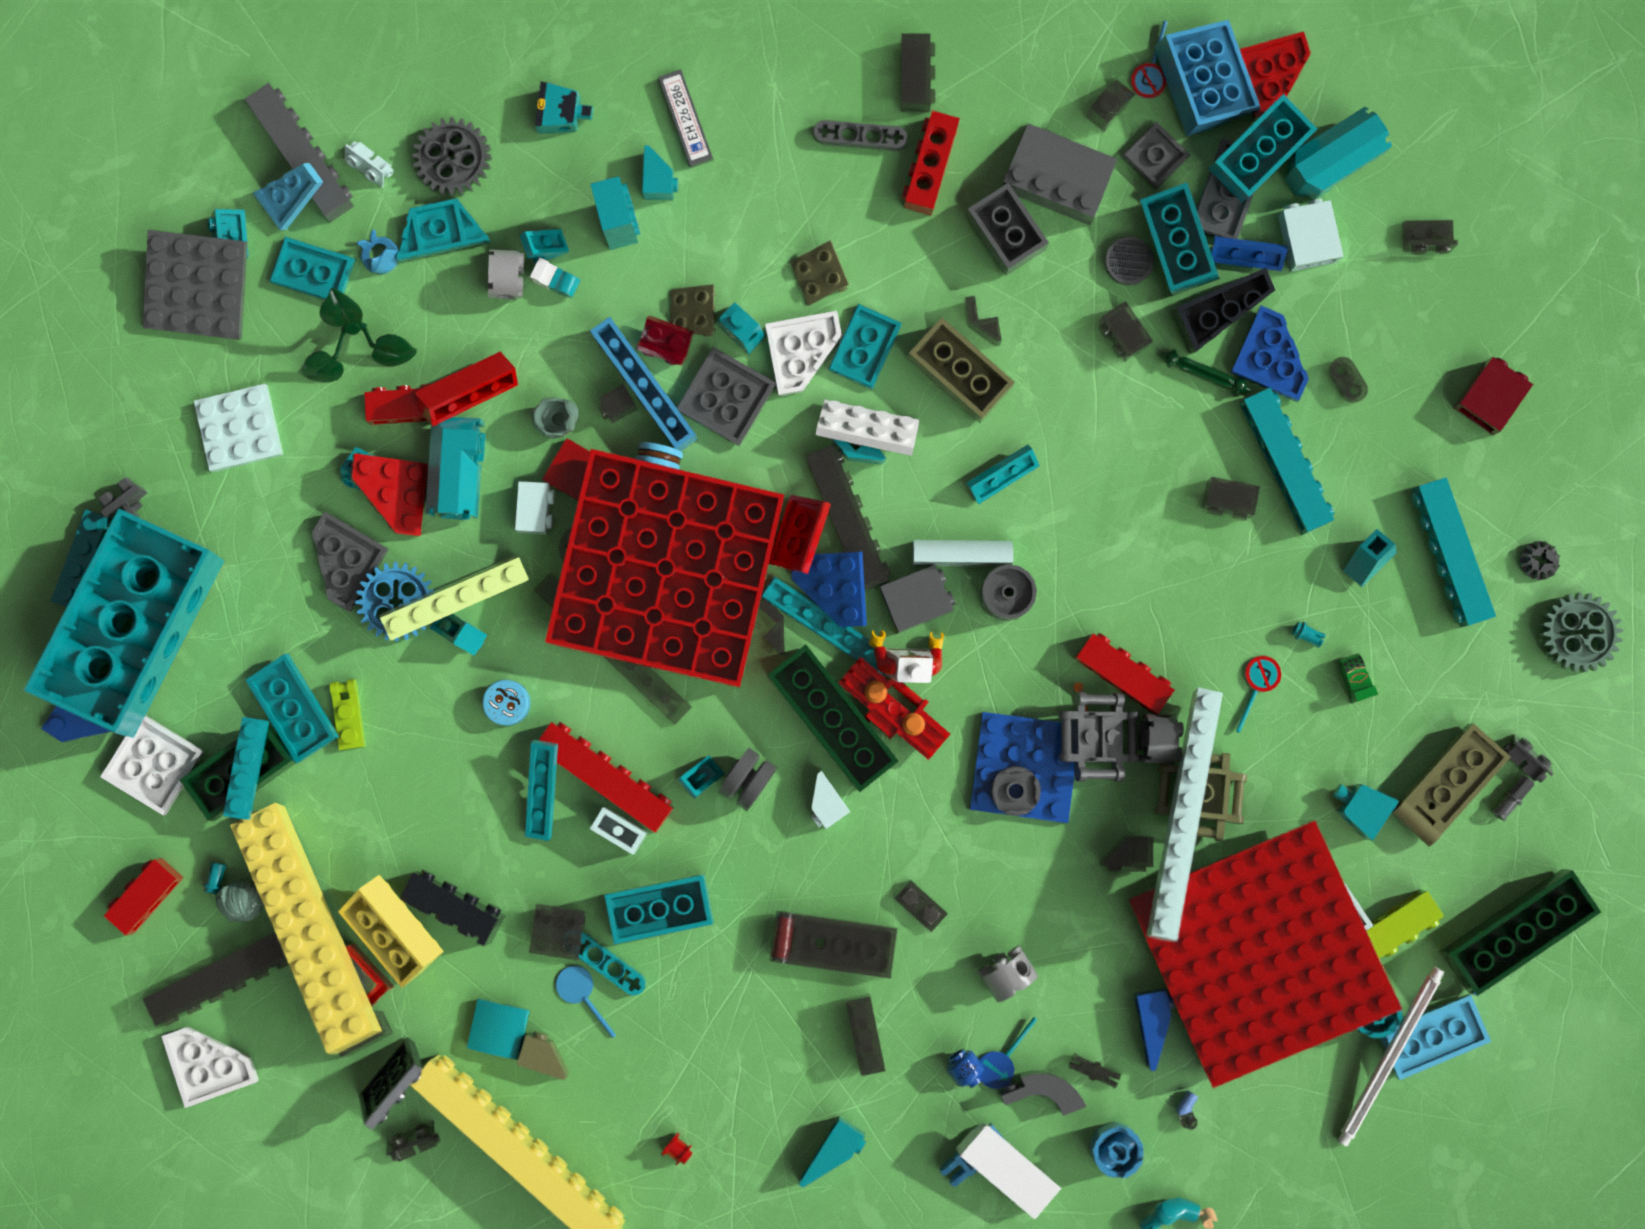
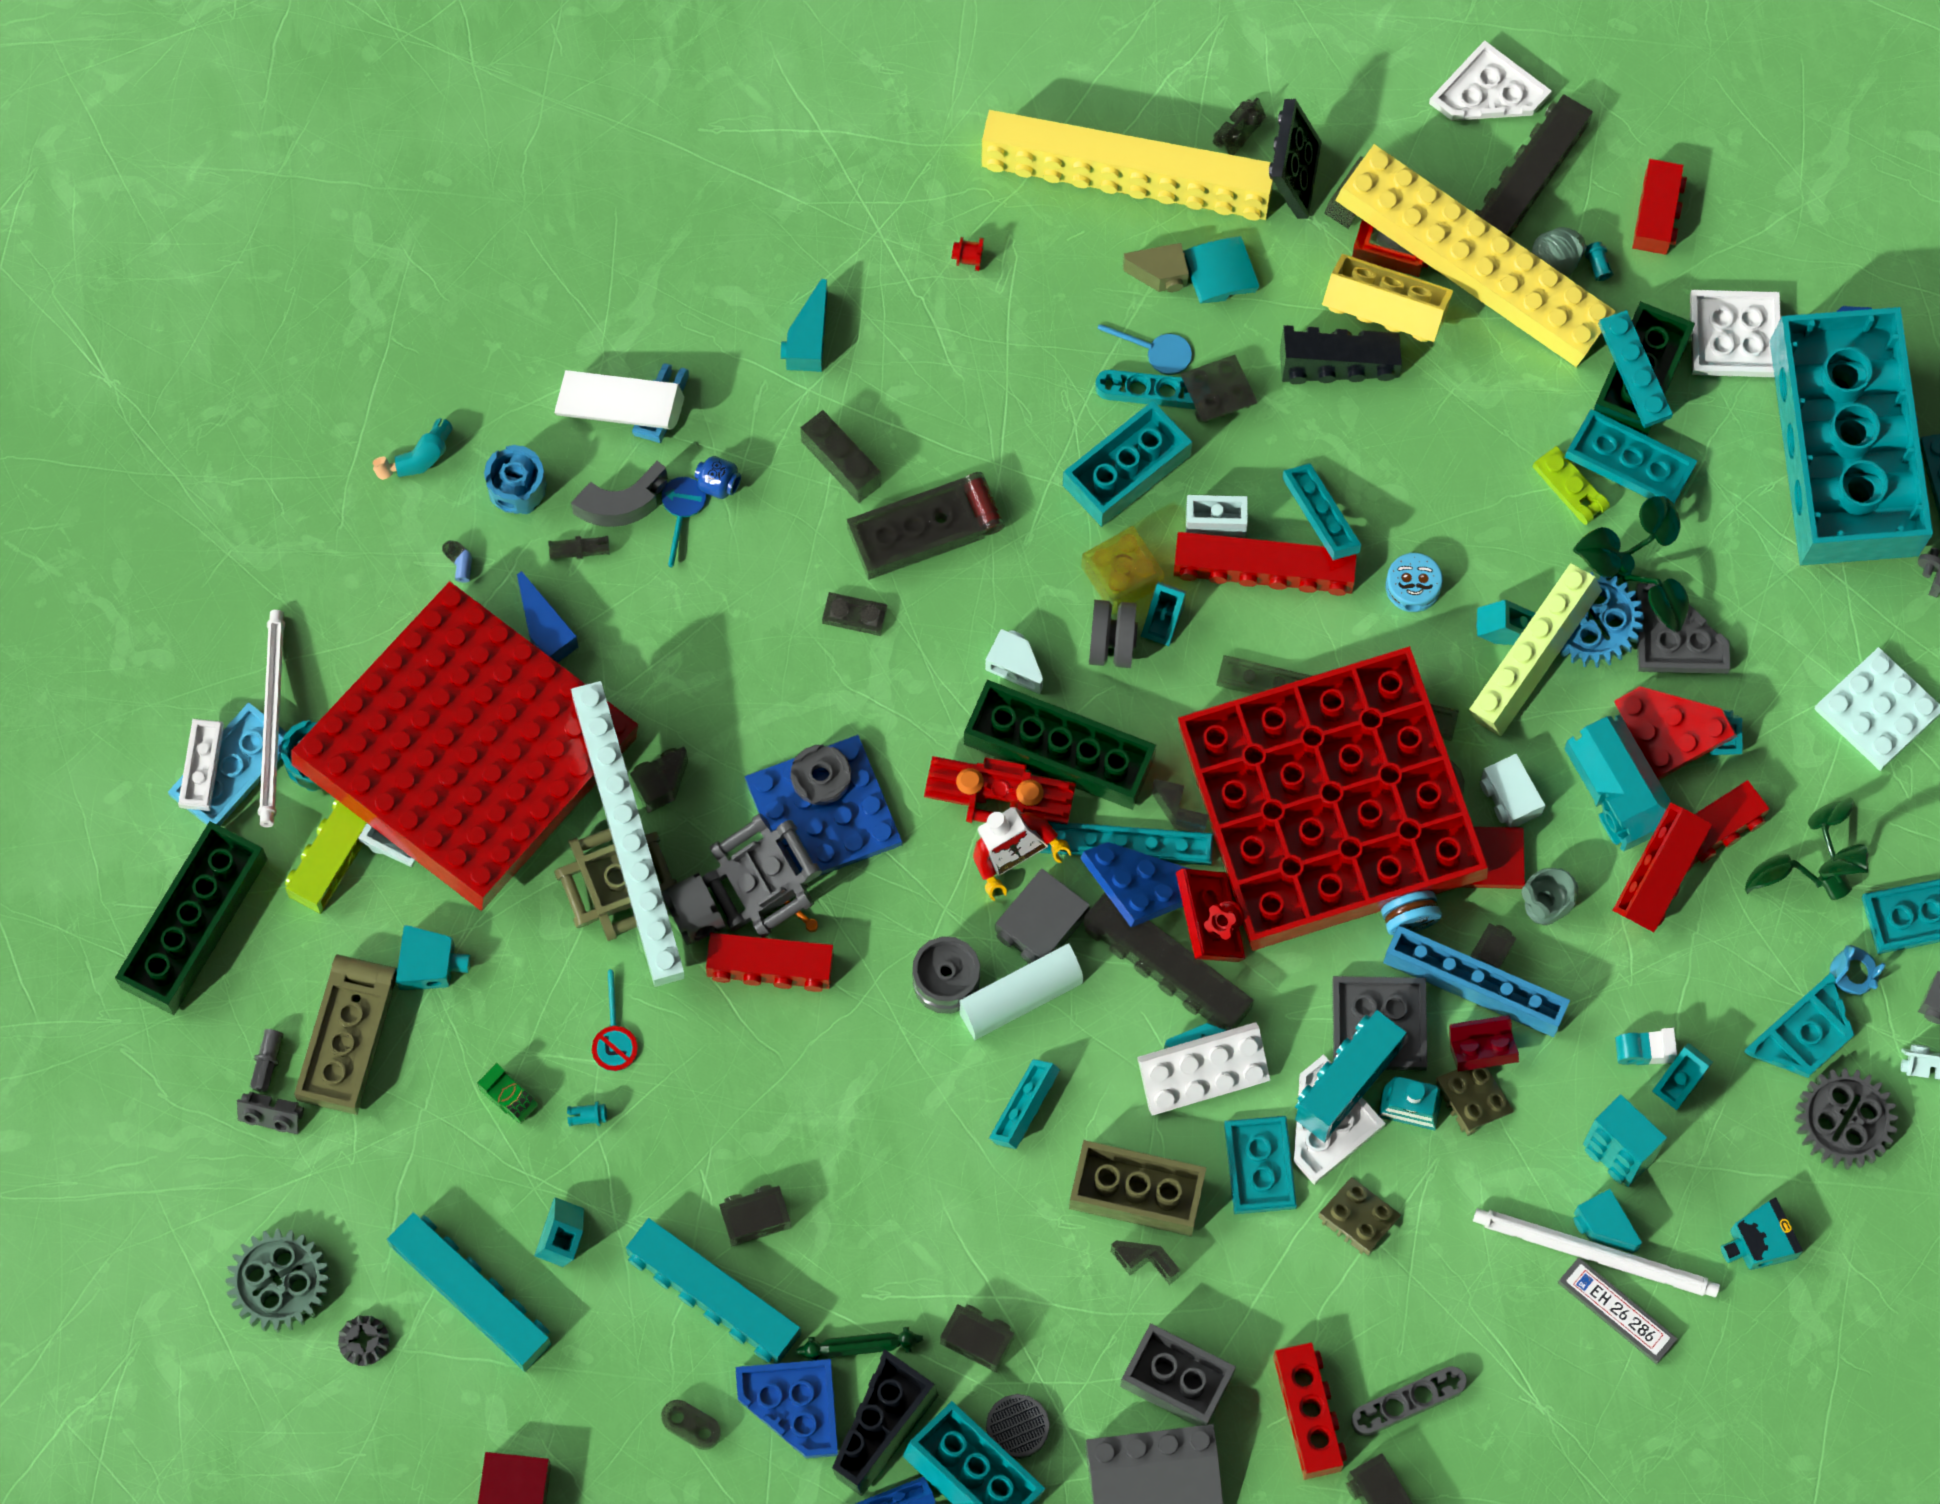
camera: 150 degrees right, 15 degrees down
(357, 633) = (1602, 554): none -> dark green plant
(503, 274) = (1702, 1015): light grey brick -> none
(680, 167) = (1596, 1252): none -> white piece
(710, 828) = (1122, 568): none -> clear yellow brick
(774, 359) = (1350, 1075): none -> teal brick
(794, 519) = (1224, 918): none -> red brick
(1008, 974) = (725, 587): light grey brick -> none
(1458, 1048) = (201, 764): none -> white tile

